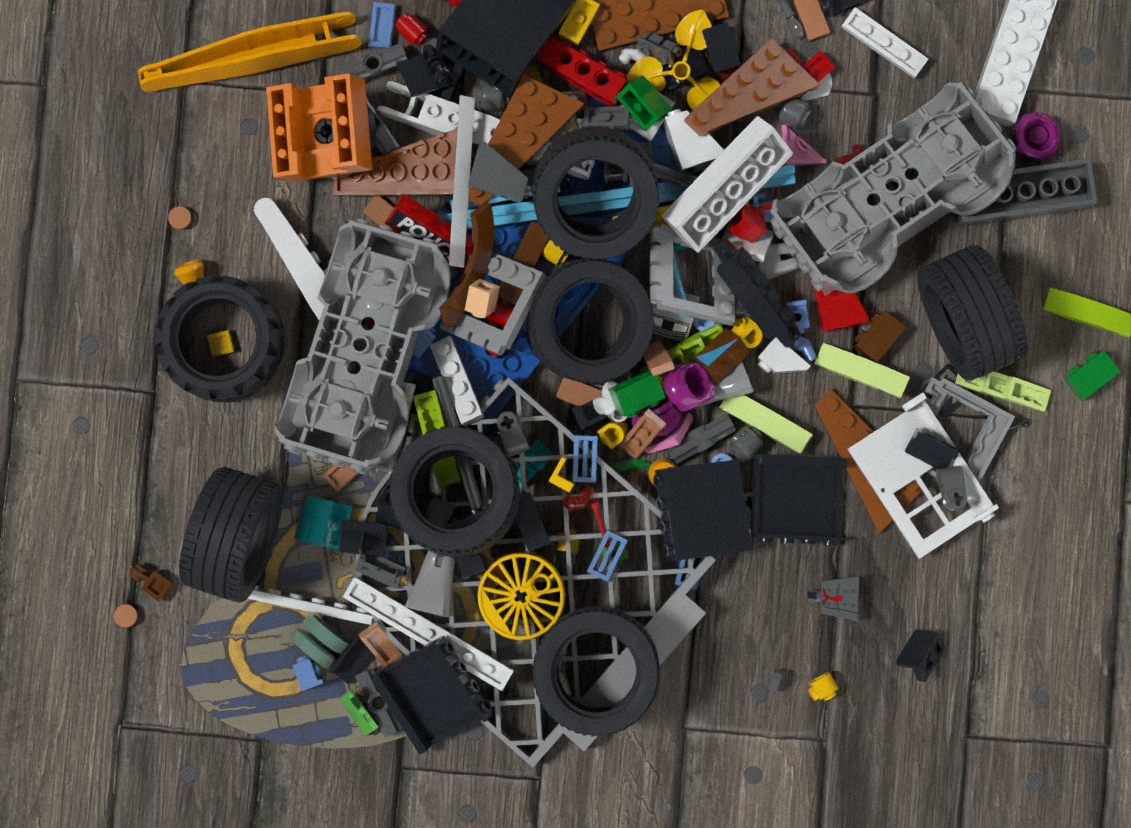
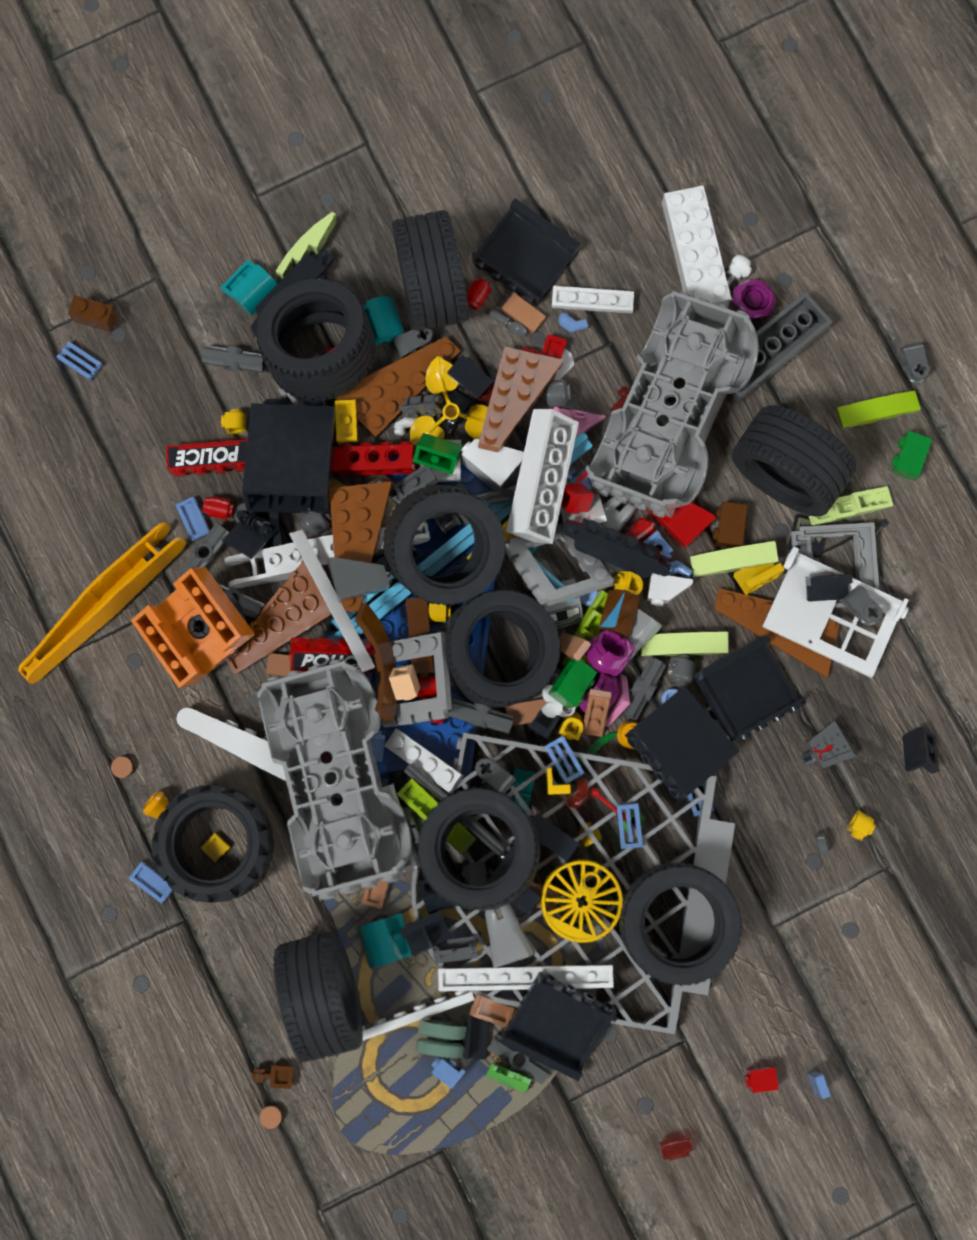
camera: 30 degrees left, 5 degrees down
(143, 339) = (151, 882): none -> medium blue tile
(534, 371) = (480, 716): none -> dark grey piece
(791, 290) = (641, 529): none -> red brick
(848, 54) = (570, 324): none -> medium blue arm
(872, 400) = (755, 578): none -> yellow panel
(1042, 96) = (738, 268): none -> white piece

